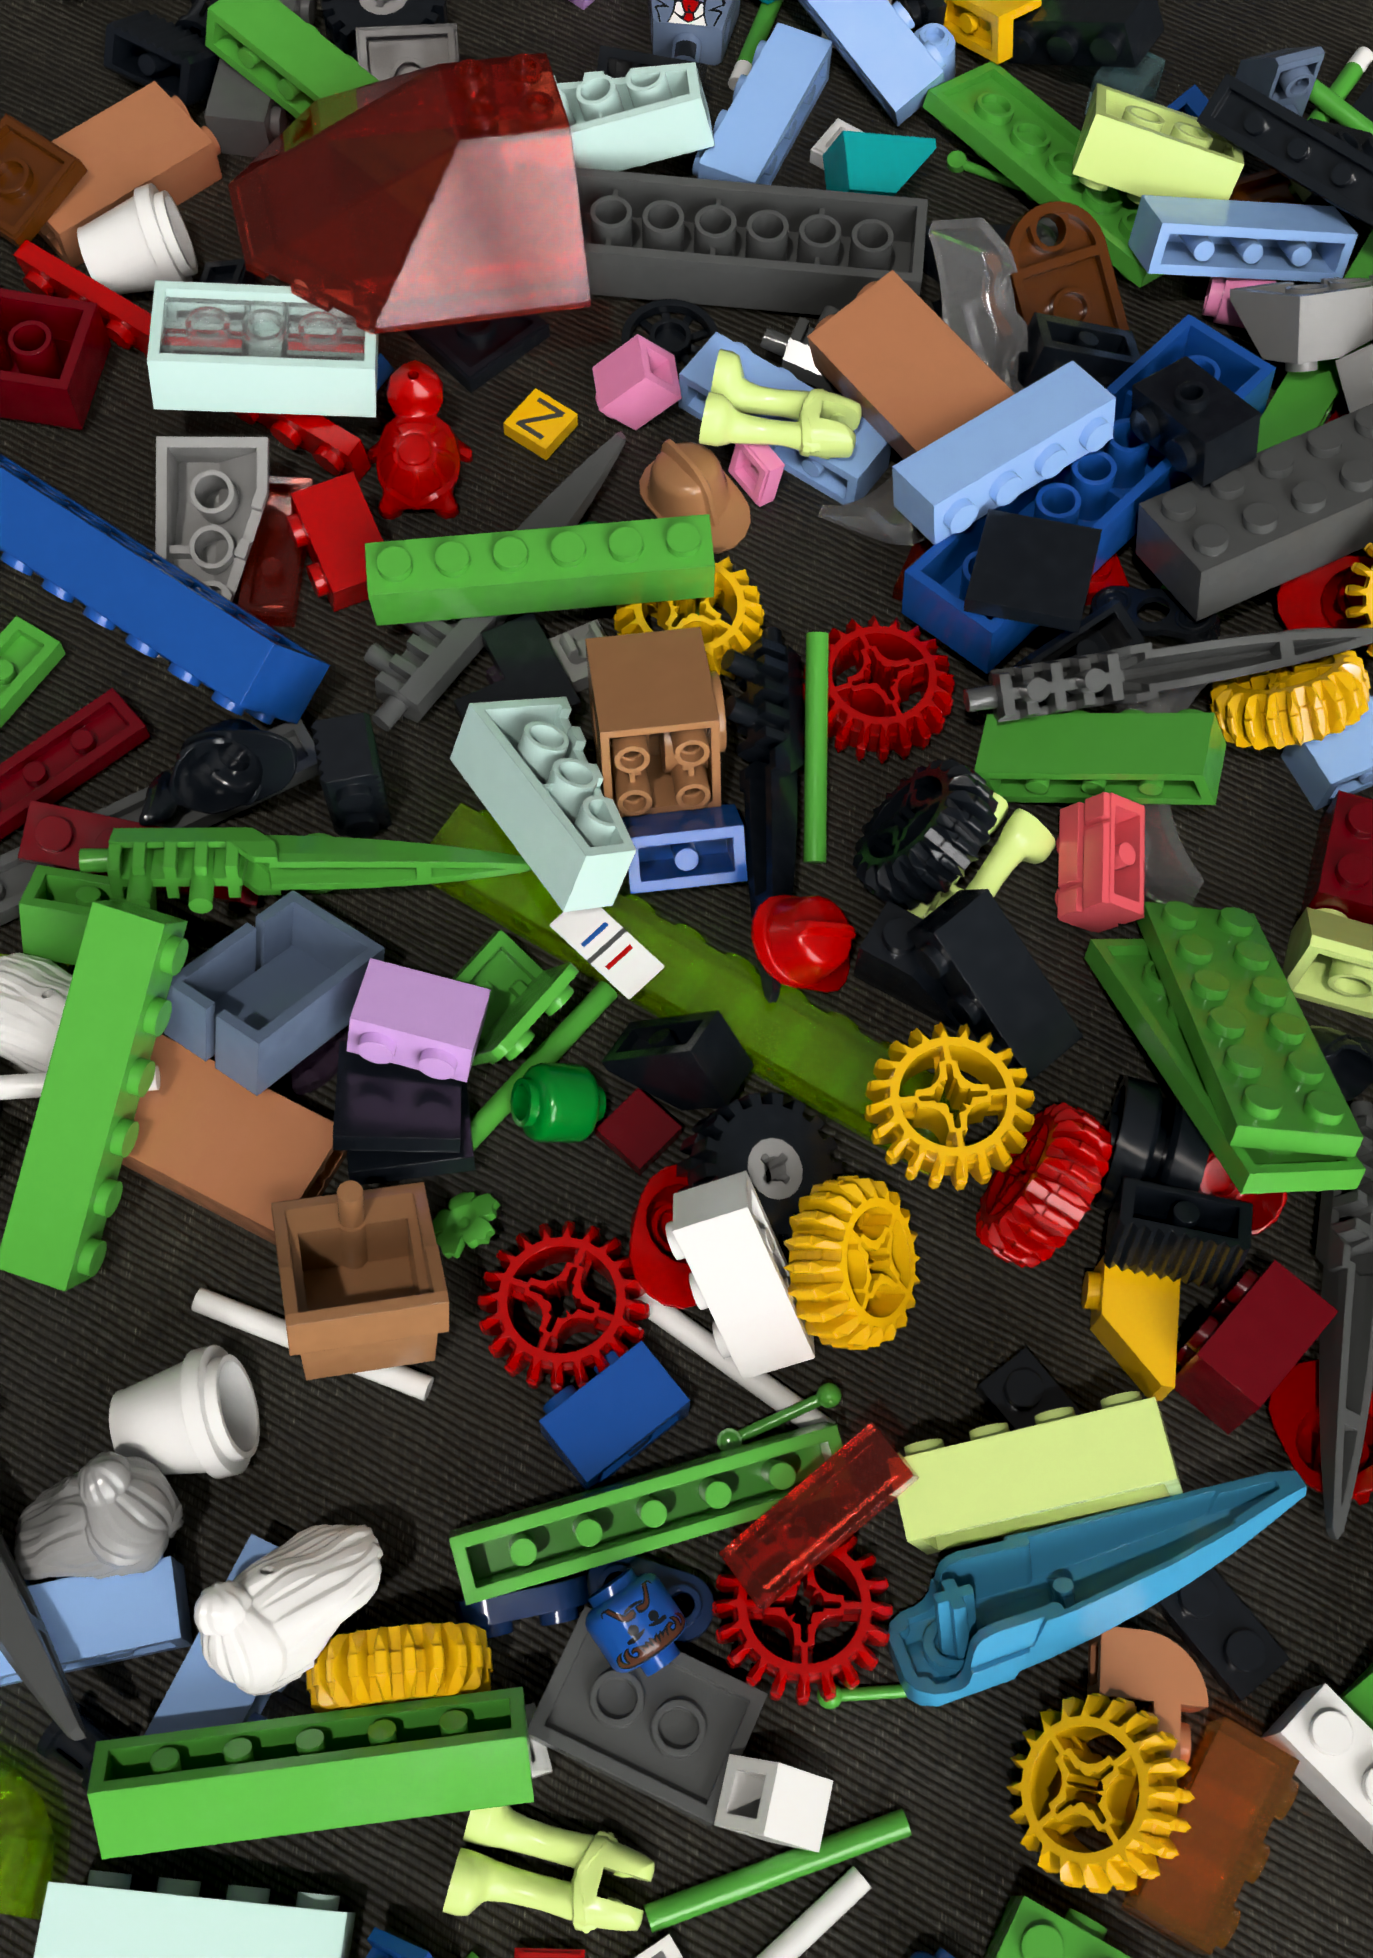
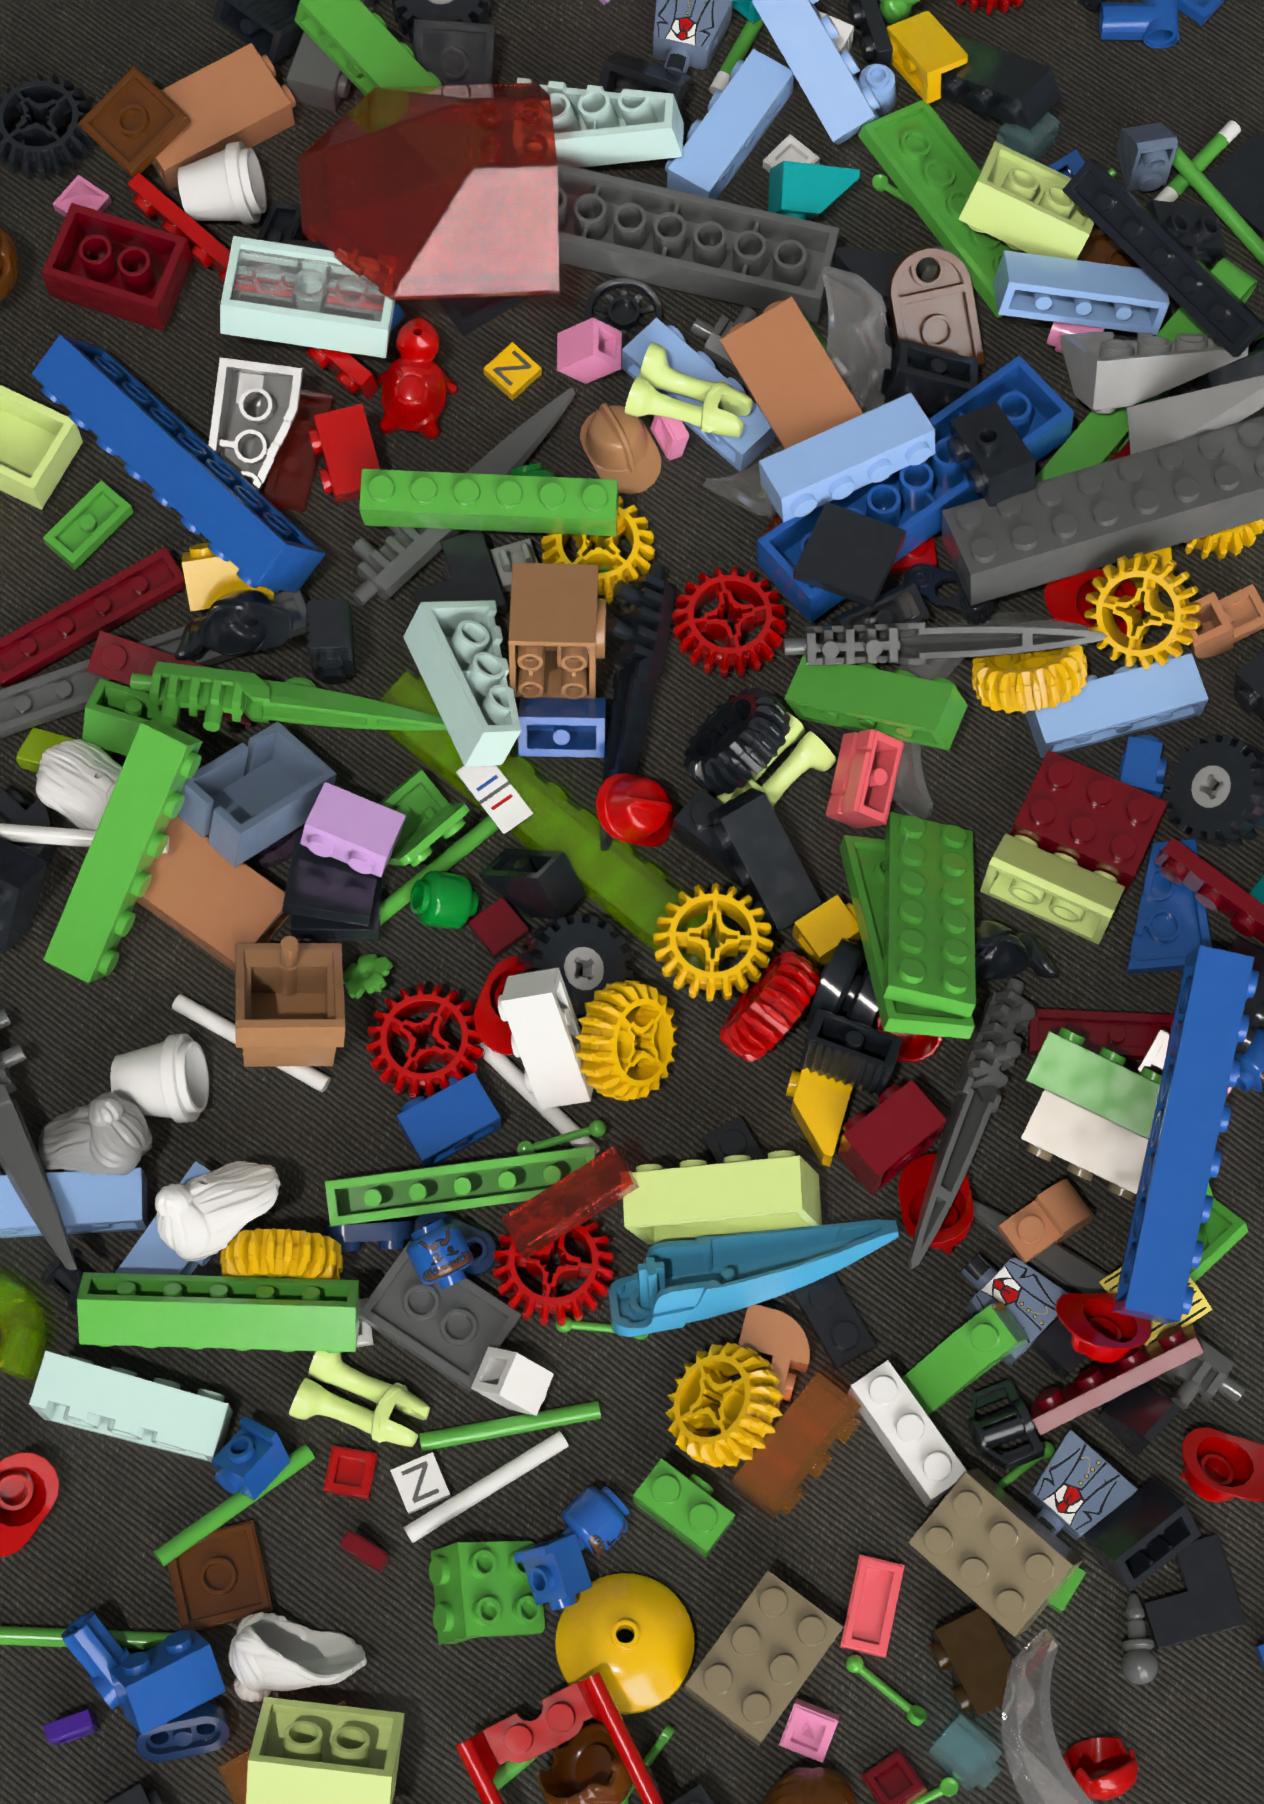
camera: 10 degrees right, 5 degrees up
(176, 710) = (211, 577): none -> yellow slope
(816, 748) = (672, 663): bright green bar -> none
(1093, 1069) = (823, 928): none -> yellow brick

